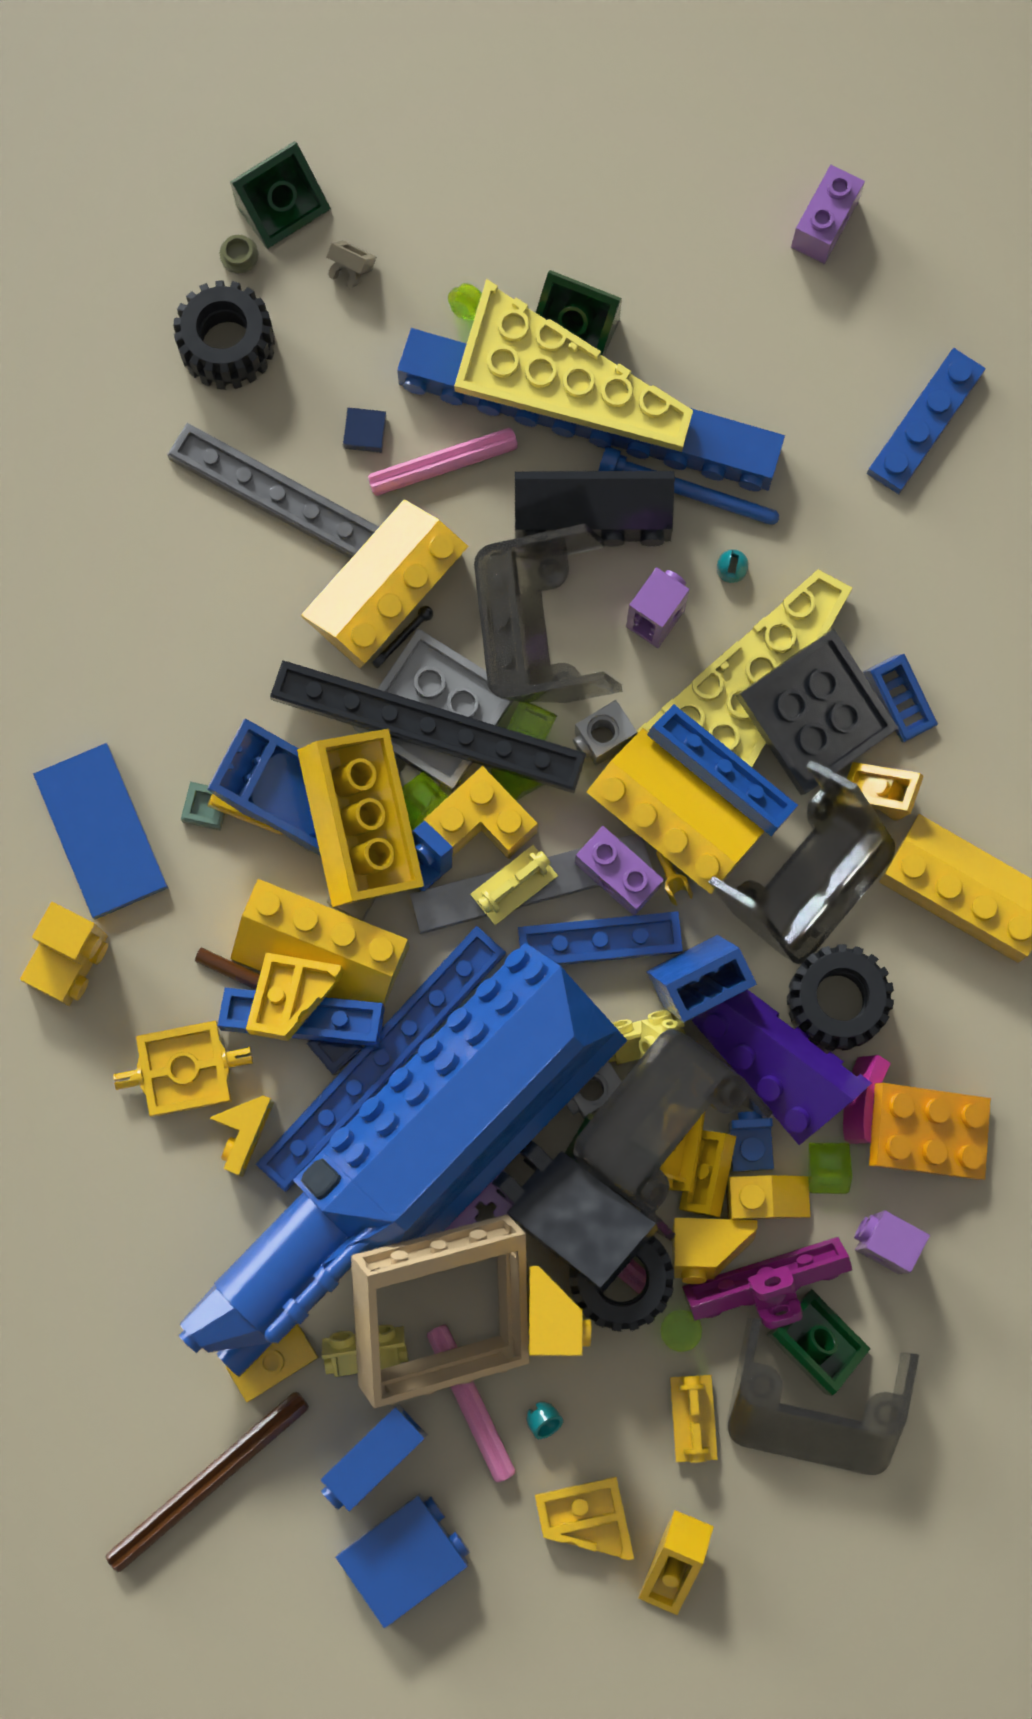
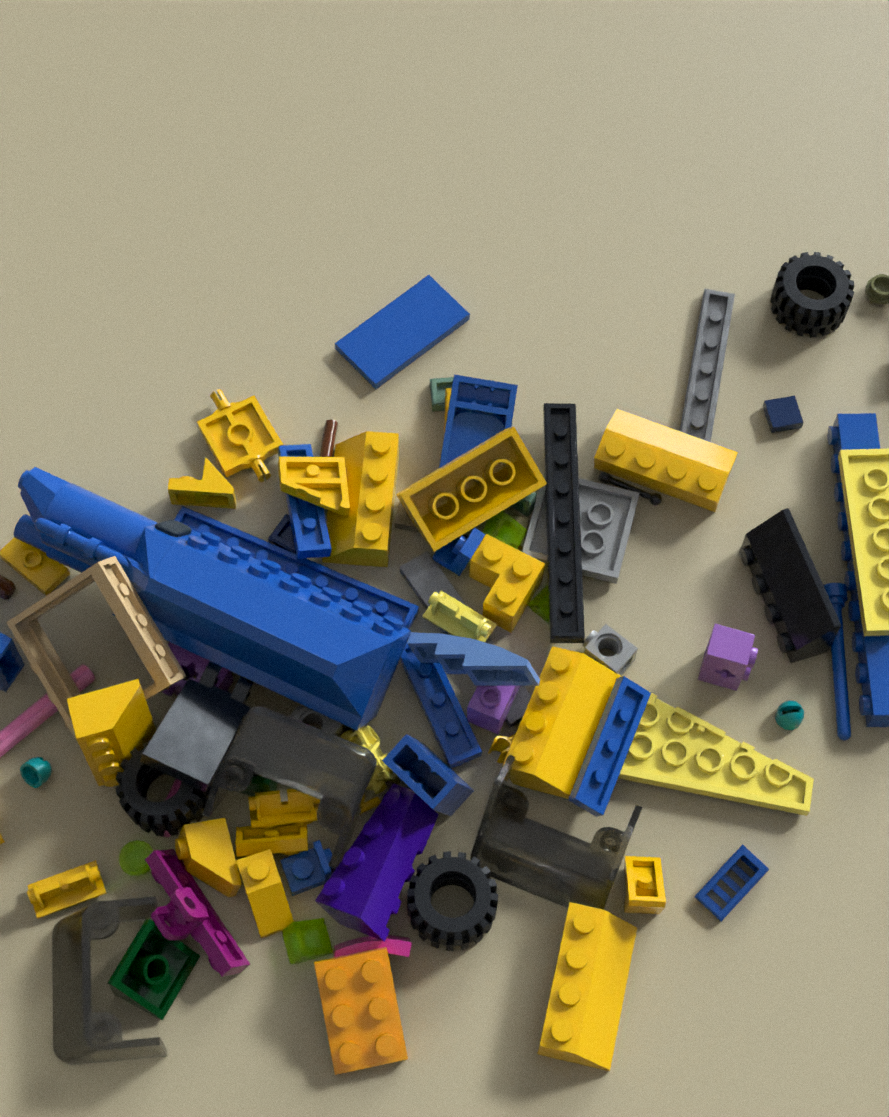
camera: 70 degrees right, 15 degrees down
(64, 954) = (301, 330): yellow brick -> none
(341, 1355) = (66, 631): light yellow hinge -> none
(442, 461) = (782, 475): bright pink axle -> none
(513, 618) = (678, 556): clear smoke windscreen -> none
(532, 720) = (596, 596): clear neon green slope -> none
(597, 876) = (481, 661): none -> medium blue slope
(817, 710) = (691, 810): black plate -> none
(890, 1241) = (253, 999): medium lavender brick -> none

